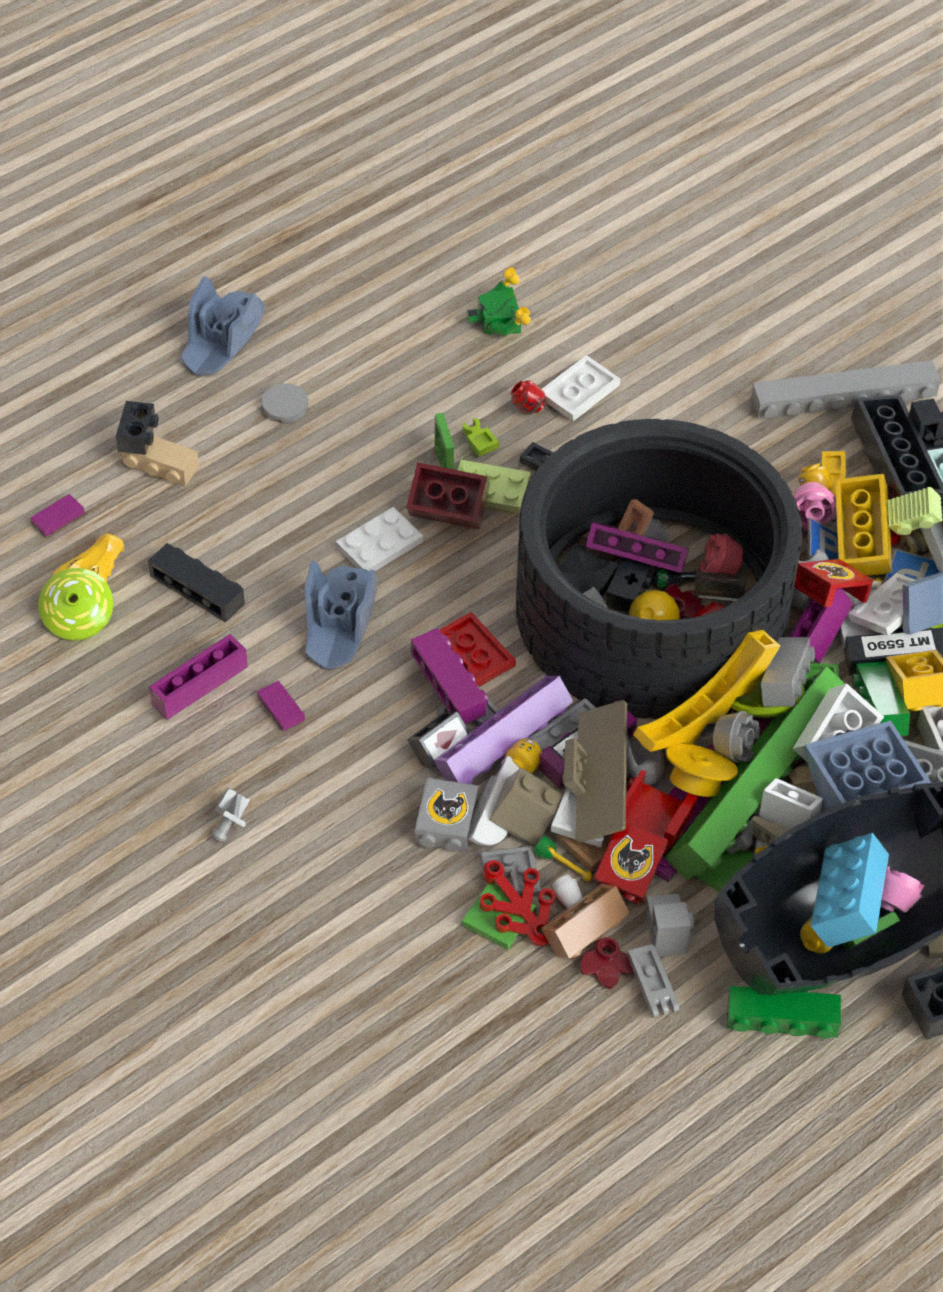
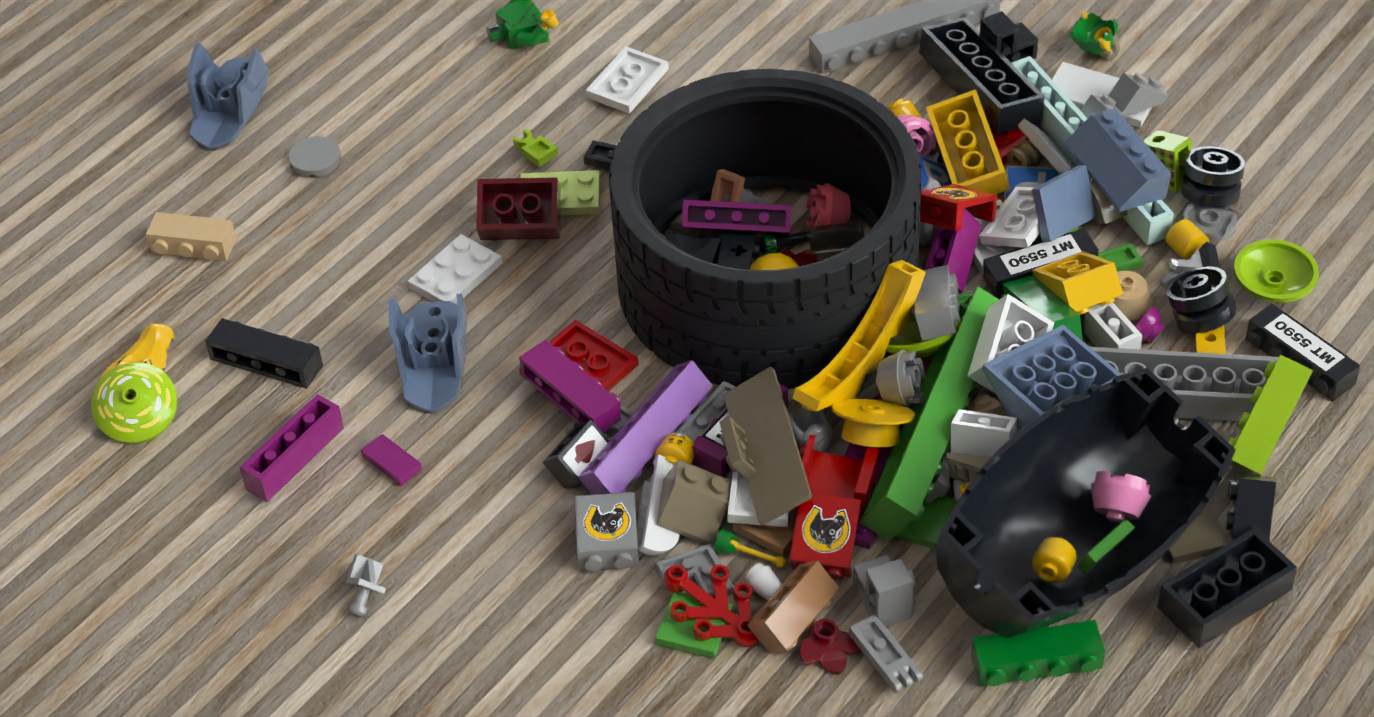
camera: 10 degrees left, 5 degrees down
(57, 515) = (90, 318): magenta tile -> none
(136, 427) = (159, 208): black brick -> none
(443, 442) = (499, 157): bright green tile -> none
(527, 397) = (575, 98): red head -> none
(836, 465) = (919, 96): yellow plate -> none
(850, 890) = (1076, 504): medium azure brick -> none
(914, 511) = (1017, 120): yellowish green brick -> none

